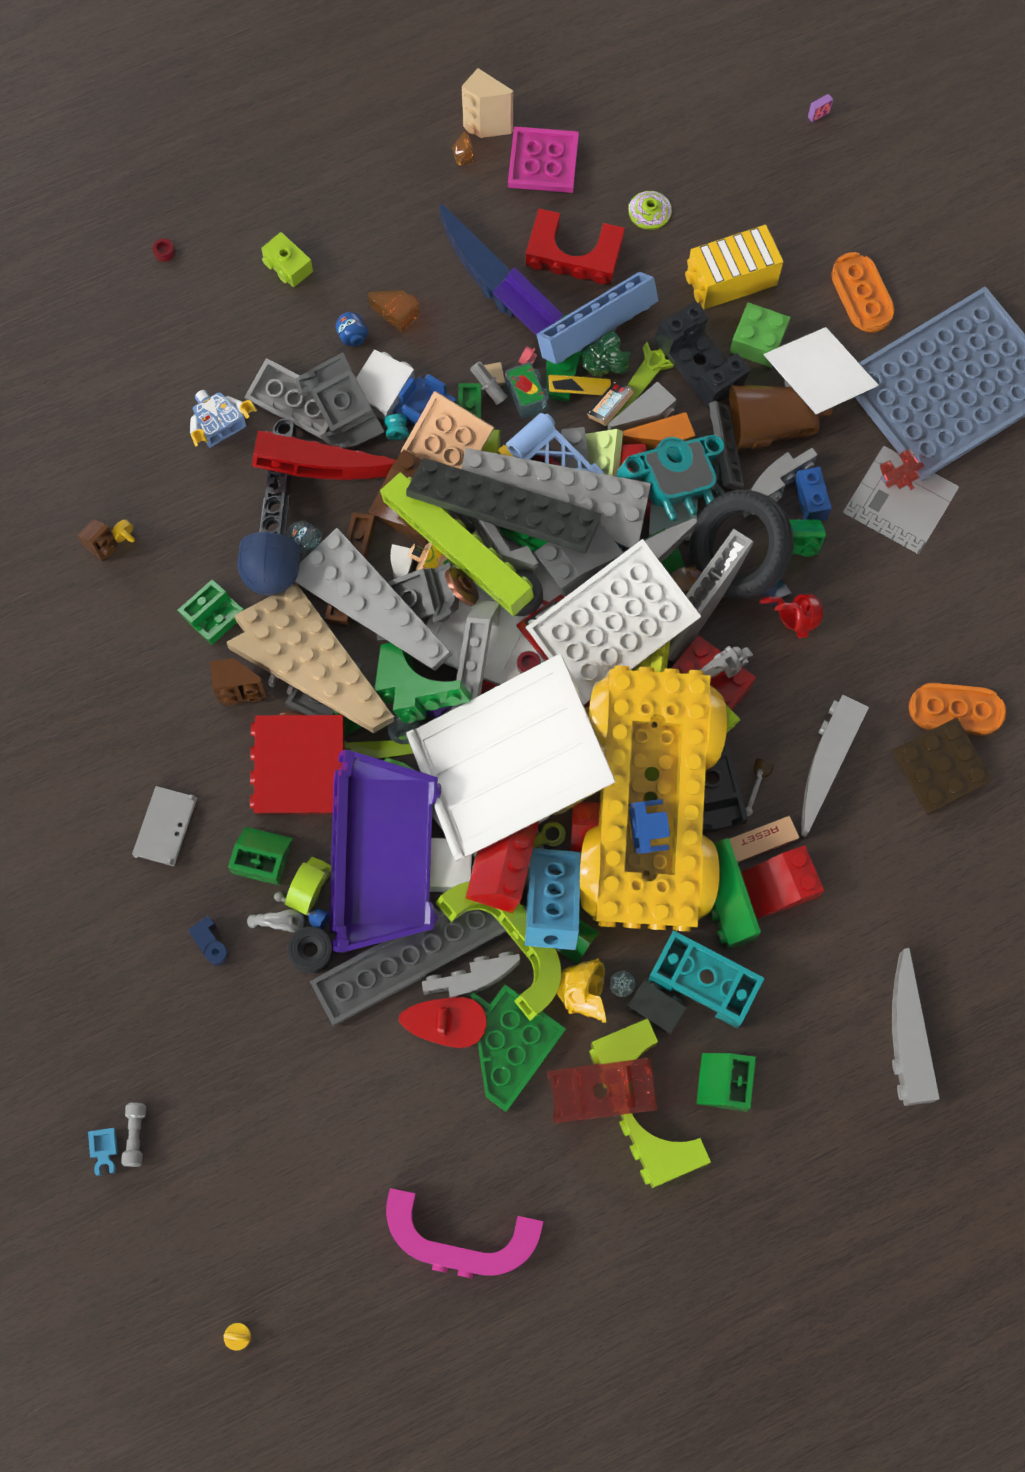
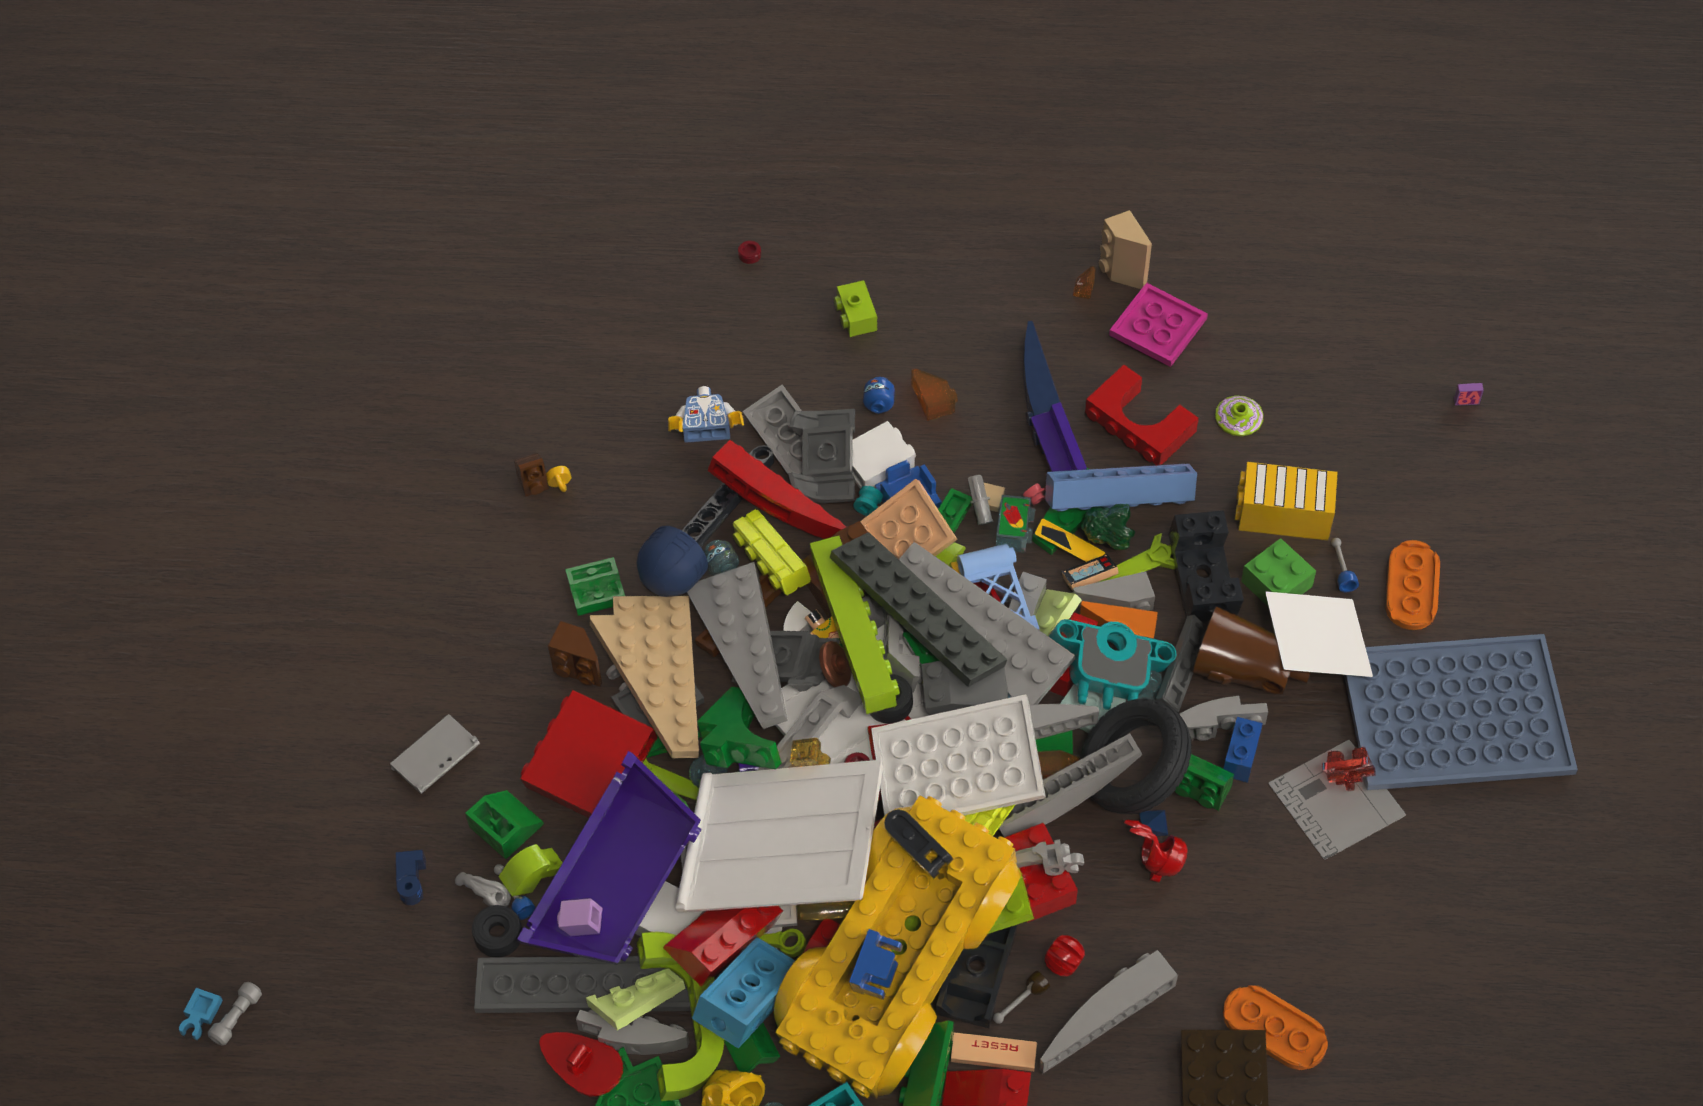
camera: 30 degrees right, 15 degrees down
(345, 511) = (771, 552): none -> neon yellow brick
(376, 905) = (580, 917): none -> lavender brick
(460, 954) = (630, 1003): none -> yellowish green wing
(491, 676) = (810, 753): none -> clear yellow leg
(632, 710) = (916, 841): none -> black plate
(772, 735) = (1064, 955): none -> red piece
(812, 311) = (1347, 579): none -> blue hinge

